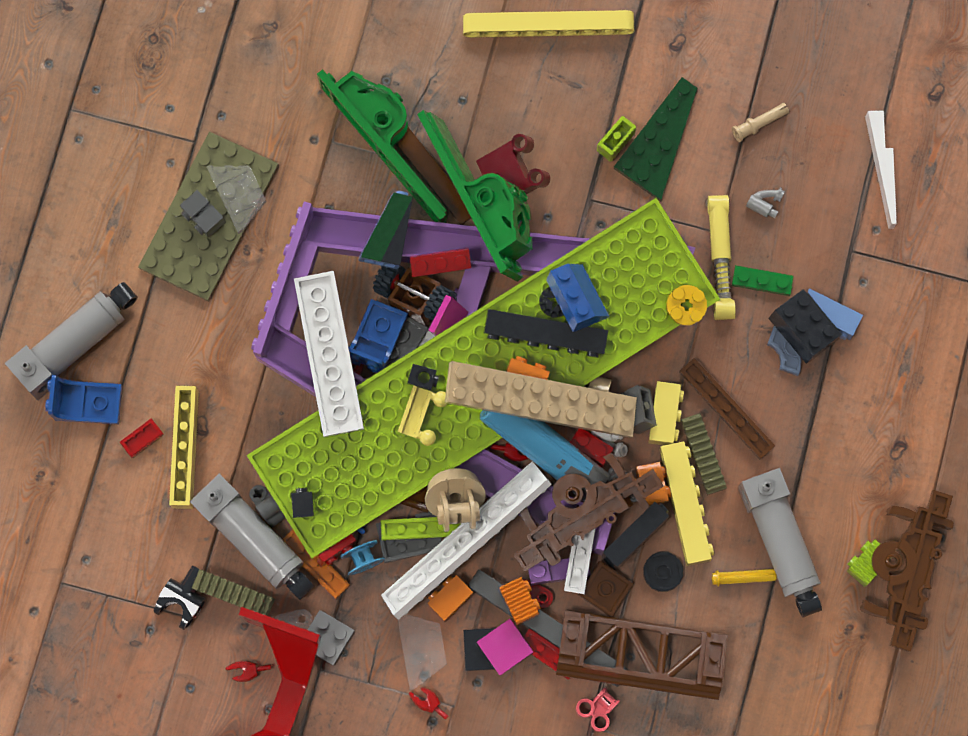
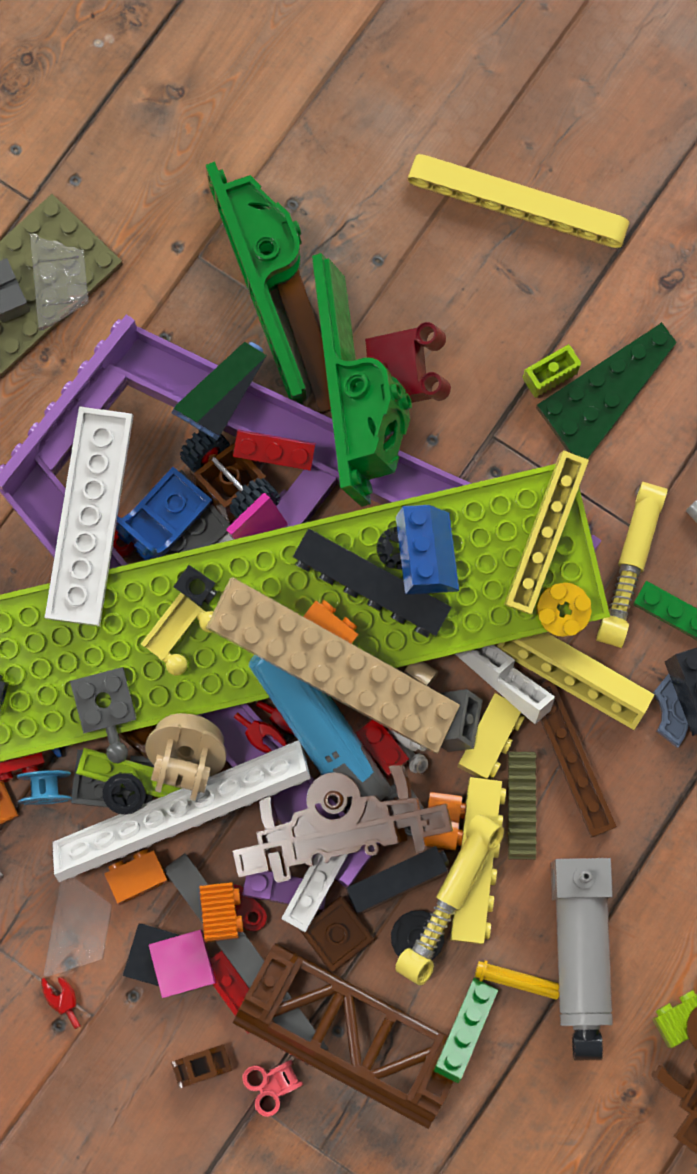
camera: 15 degrees right, 0 degrees up
(397, 486) = (118, 712): none -> dark grey plate
(418, 550) = (117, 802): none -> black gear
(500, 465) = (257, 731): none -> red hand
(544, 713) = (201, 1066): none -> reddish brown brick
(653, 364) = (519, 690): none -> white slope
(656, 255) = (546, 532): none -> light yellow brick
(684, 485) = (481, 839): none -> light yellow piece
(713, 349) = (581, 676): none -> light yellow brick
(720, 622) = (465, 1030): none -> plate

